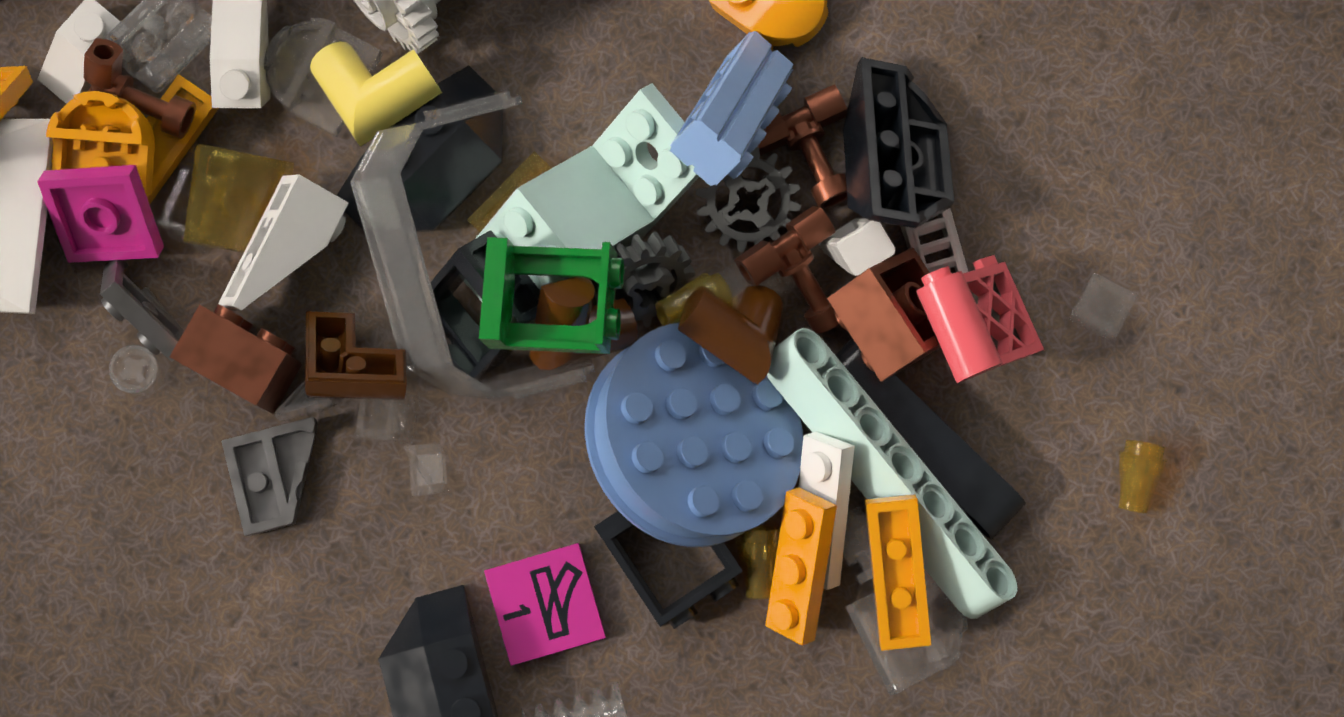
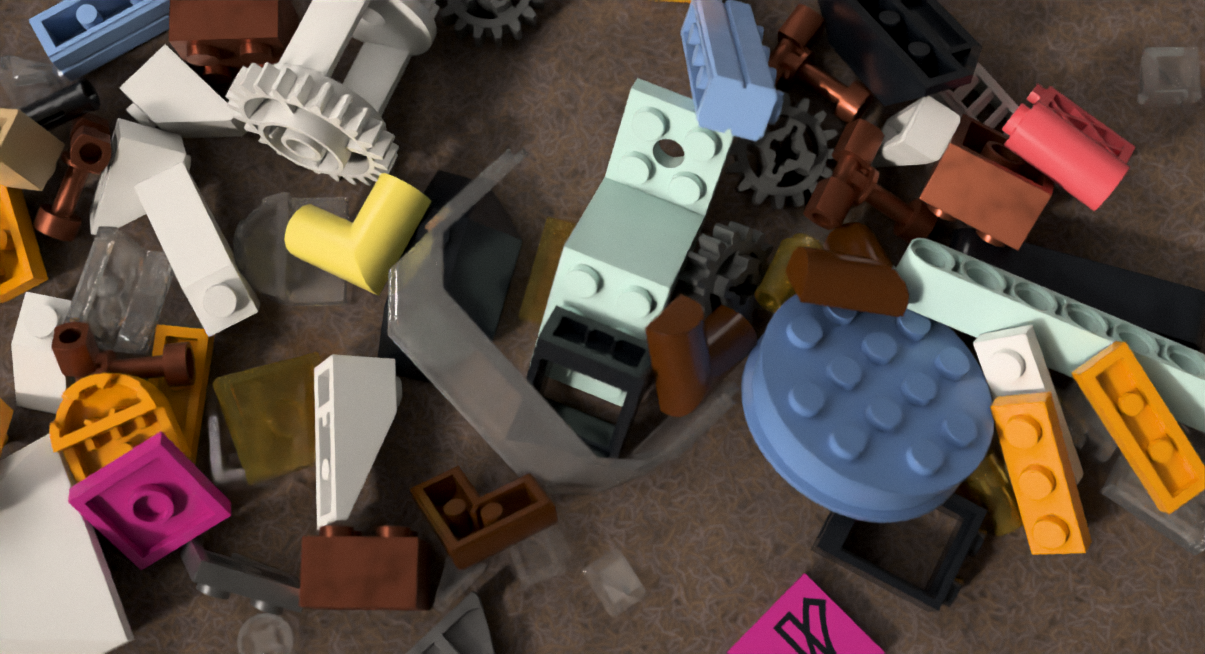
camera: 25 degrees left, 5 degrees down
(506, 261) = (685, 278): green panel -> none

